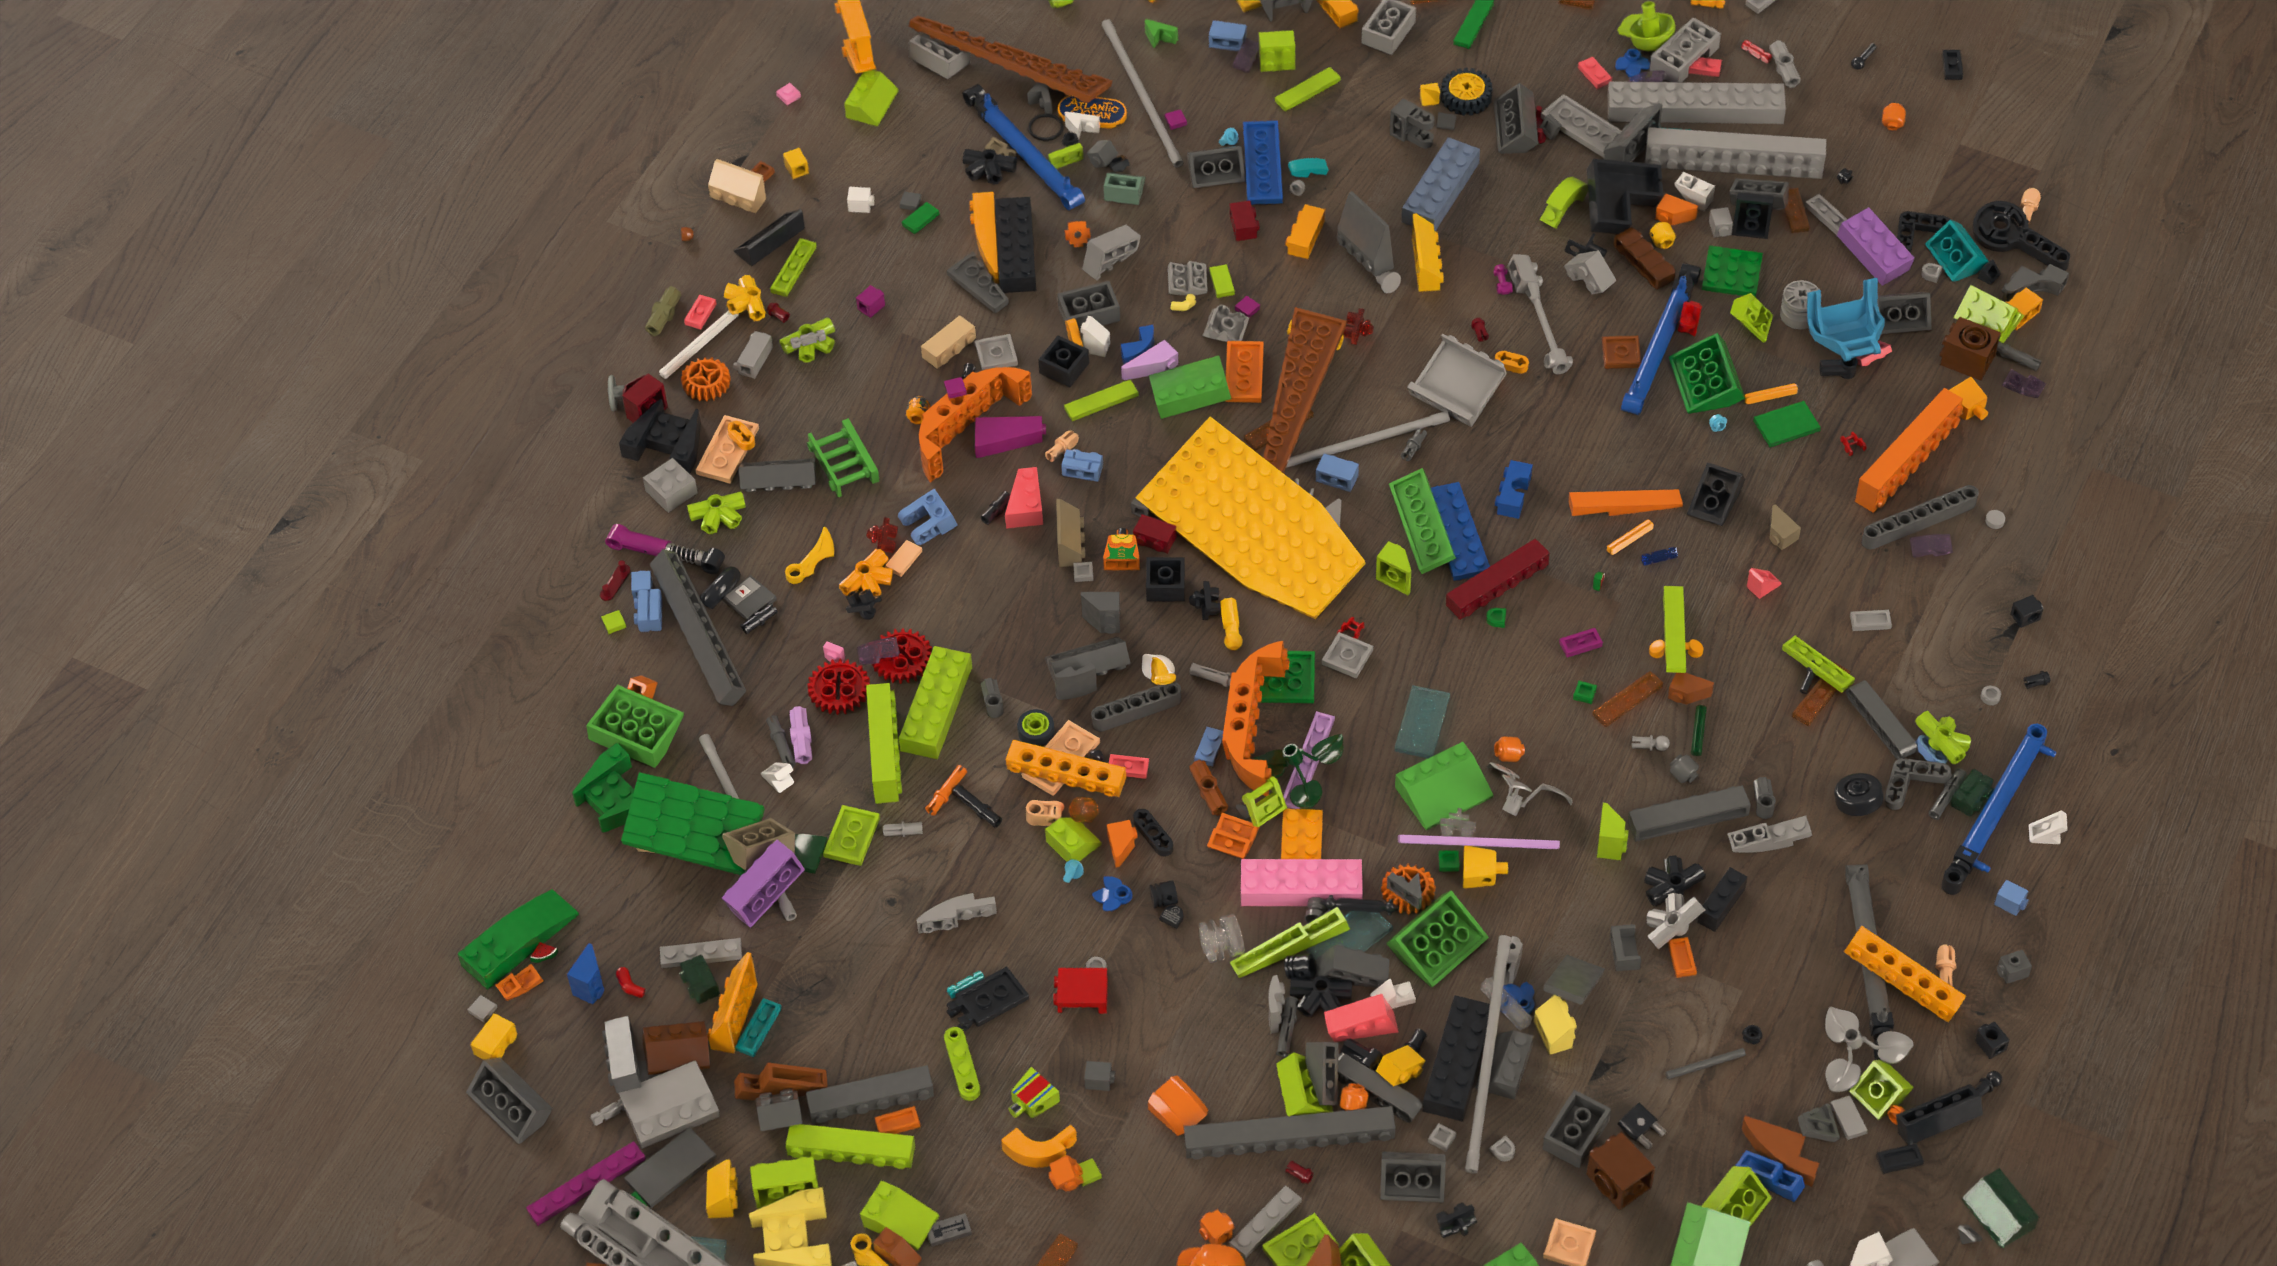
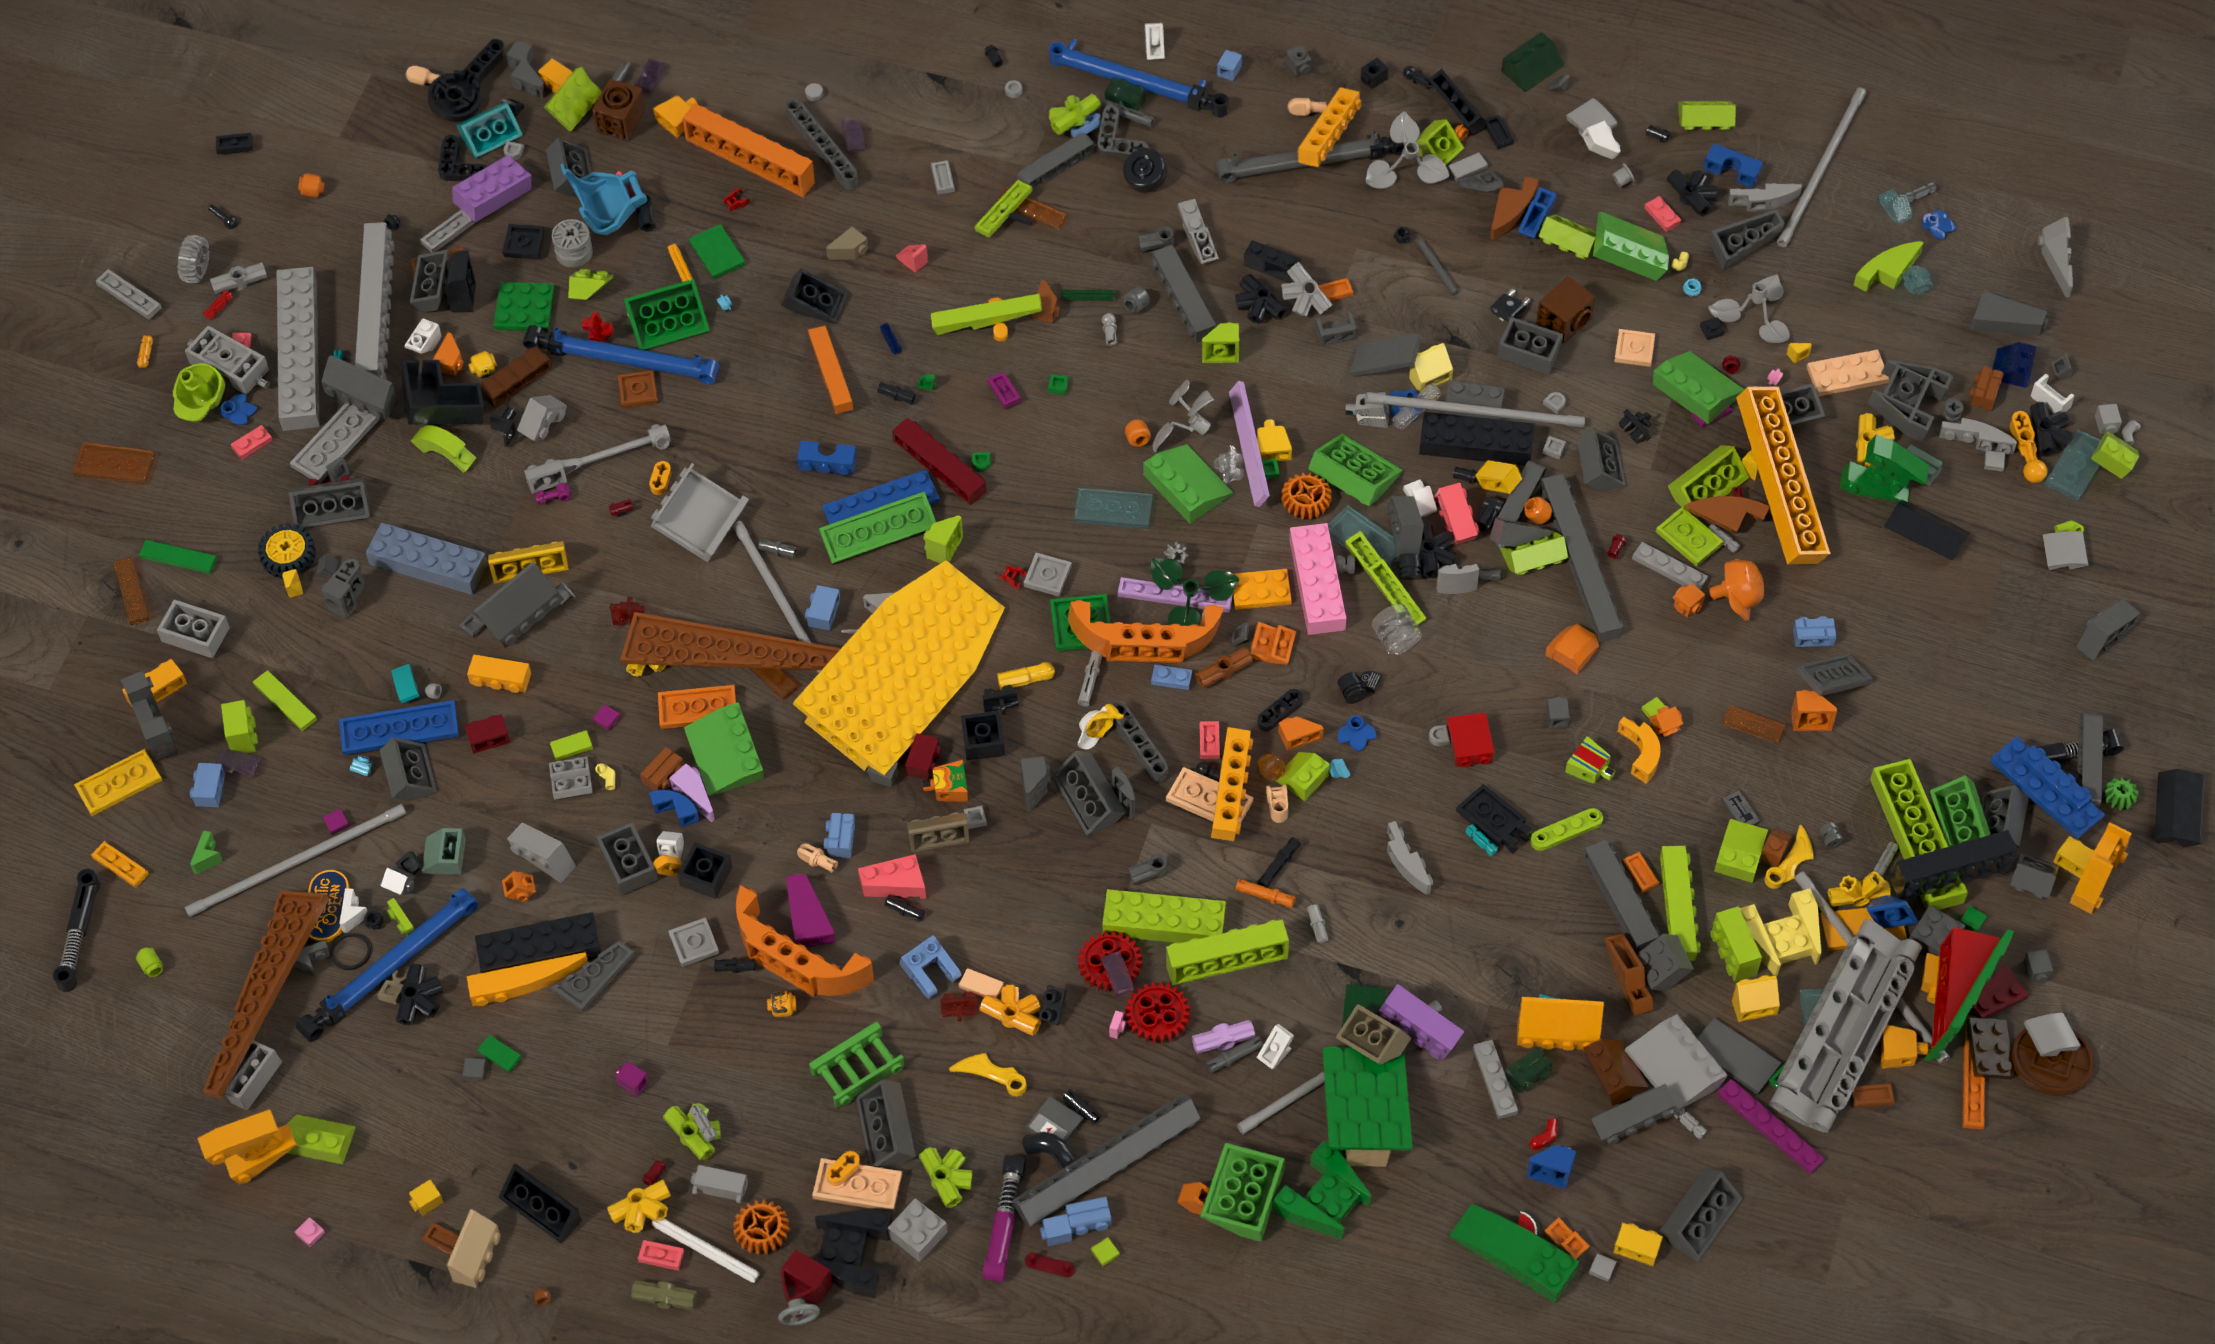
camera: 100 degrees left, 5 degrees up
(793, 267) = (582, 1173): lime tile -> none
(851, 835) = (1334, 967): lime plate -> none
(860, 199) = (479, 1118): white brick -> none
(948, 342) = (684, 989): tan brick -> none
(955, 387) = (773, 950): magenta tile -> none
(1036, 719) = (1179, 815): wheel -> none
(1101, 400) = (747, 834): lime tile -> none
(1180, 339) = (661, 768): none -> dark orange brick
(1225, 325) = (636, 733): light grey slope -> none
(1268, 806) = (1247, 616): lime plate -> none
(1352, 763) = (1172, 549): none -> light grey gear
(1360, 905) = (1335, 529): black wheel -> none
(1408, 891) = (1319, 483): dark grey slope -> none
(1588, 553) = (896, 393): none -> black pin
(1627, 699) = (1060, 351): clear orange tile -> none
(1630, 537) = (871, 363): light orange axle -> none
(1650, 76) = (266, 393): clear purple slope -> none
(1720, 222) = (463, 317): light grey brick -> none
(1805, 27) = (193, 259): none -> light grey gear
(1813, 270) = (523, 241): none -> black plate
(2027, 611) = (920, 64): black brick -> none

